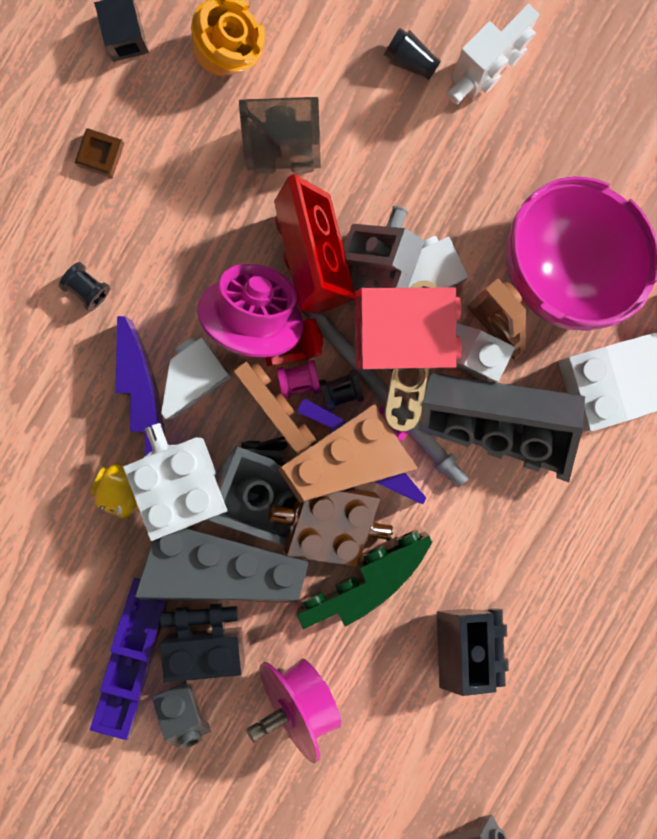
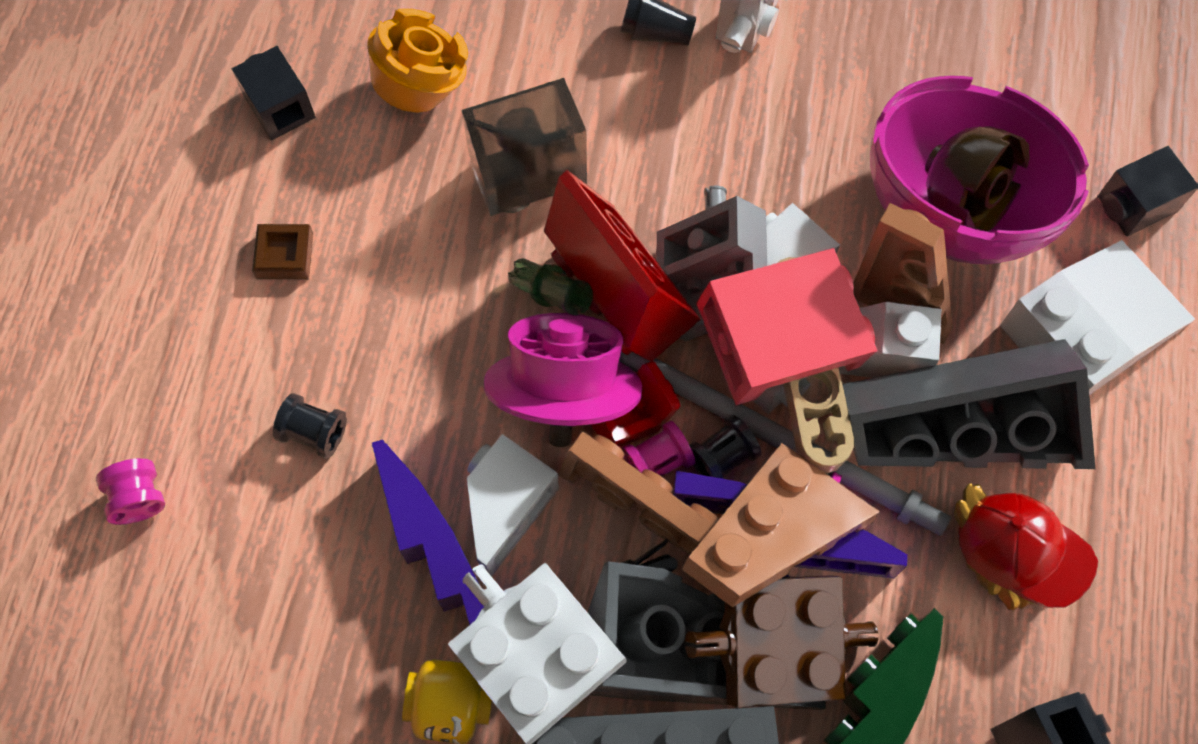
camera: 15 degrees left, 20 degrees down
(266, 243) = (551, 286): none -> axle
(501, 515) = (1022, 550): none -> red hair
(578, 259) = (975, 174): none -> dark brown cylinder

